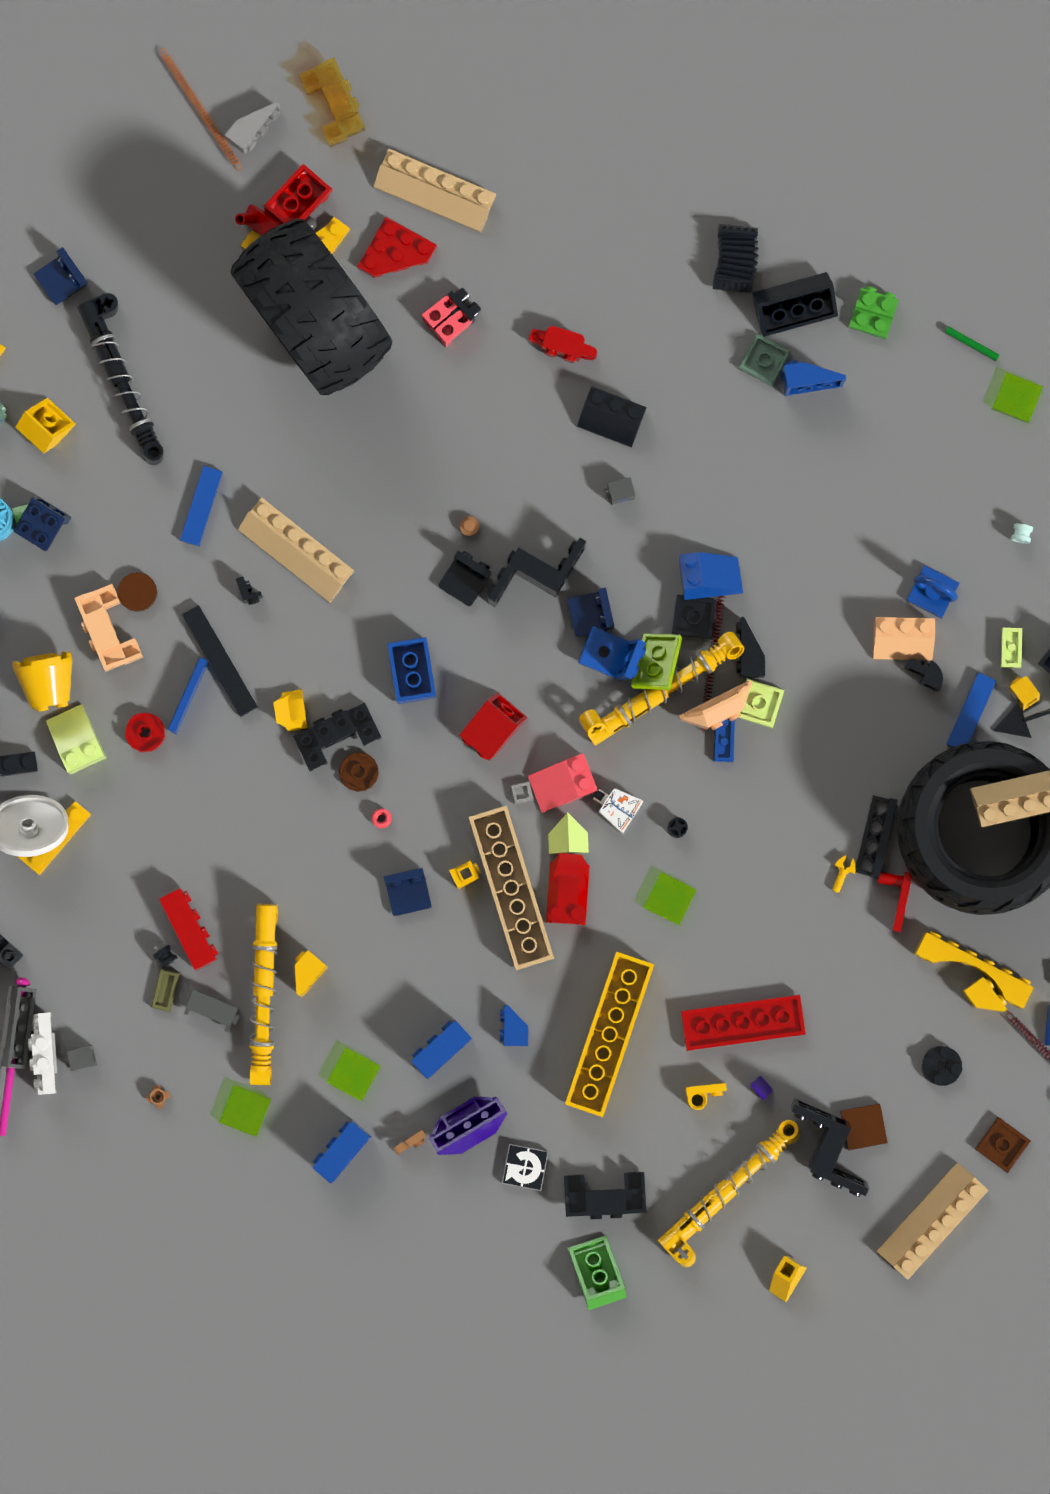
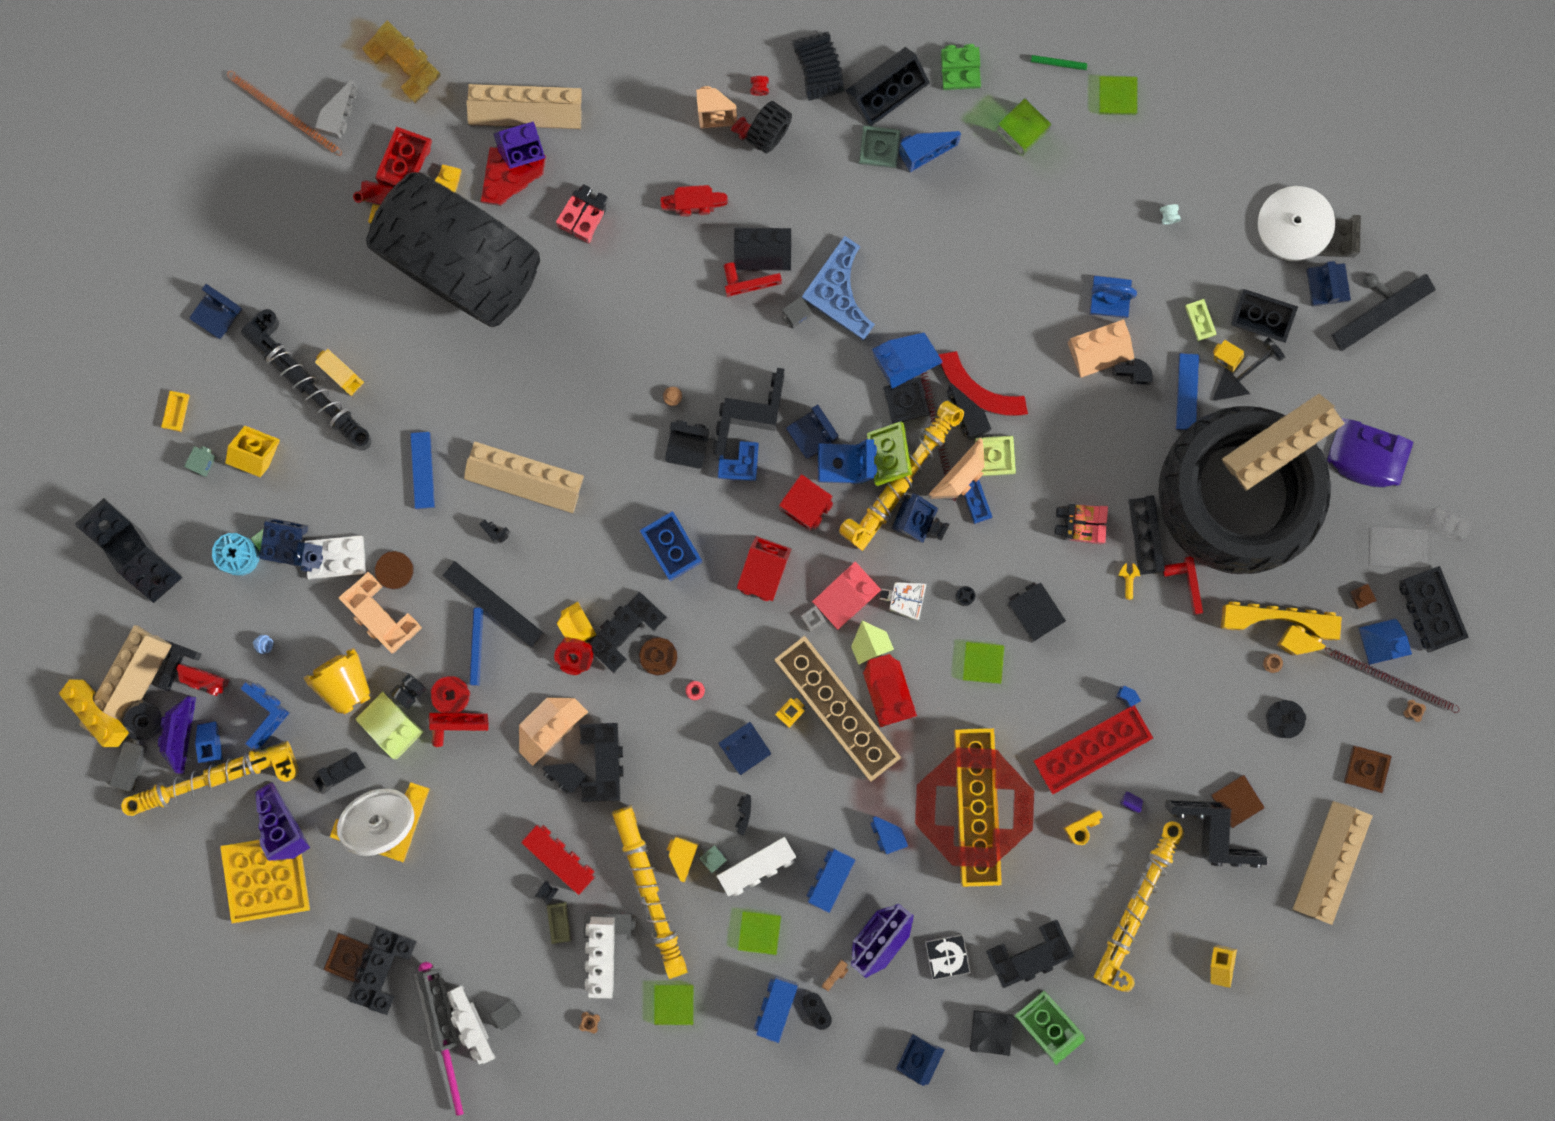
camera: 20 degrees left, 0 degrees up
(60, 547) = (308, 556): none -> dark blue brick
(85, 558) = (340, 557): none -> white plate
(106, 713) = (408, 691): none -> black wheel
(129, 755) = (455, 721): none -> red piece
(157, 380) = (338, 371): none -> yellow slope
(193, 1037) = (600, 957): none -> white brick
(227, 798) = (547, 726): none -> light nougat wedge
(227, 851) = (567, 775): none -> black slope
(270, 855) = (606, 762): none -> black bracket
(284, 733) = (577, 647): none -> red plate
(336, 986) = (713, 858): none -> sand green brick
(374, 1009) = (756, 866): none -> white brick
(378, 1170) = (817, 1011): none -> black plate
(387, 946) = (745, 808): none -> black slope
(415, 227) = (519, 145): none -> dark purple slope
(460, 1255) = (920, 1060): none -> dark blue bracket
(512, 621) = (745, 467): none -> blue plate
(539, 1255) = (991, 1033): none -> black brick
(558, 679) = (806, 503): none -> red brick
(570, 443) = (735, 287): none -> red piece
(616, 263) = (715, 108): none -> light nougat slope
(638, 291) = (741, 127): none -> red wheel
(646, 1017) = (943, 836): none -> clear red plate
(658, 733) = (915, 517): none -> dark blue bracket
(663, 300) = (769, 127): none -> black tyre
(663, 485) = (833, 294): none -> medium blue plate
(670, 256) = (759, 85): none -> red wheel
(676, 752) = (938, 529): none -> black wheel
(739, 868) = (1036, 611): none -> black panel
(767, 640) = (983, 398): none -> red tile
(797, 984) = (1128, 696): none -> blue piece
(814, 795) = (1076, 523): none -> hips
(912, 394) = (1023, 127): none -> clear neon green brick
(950, 1007) = (1272, 663): none -> medium nougat plate

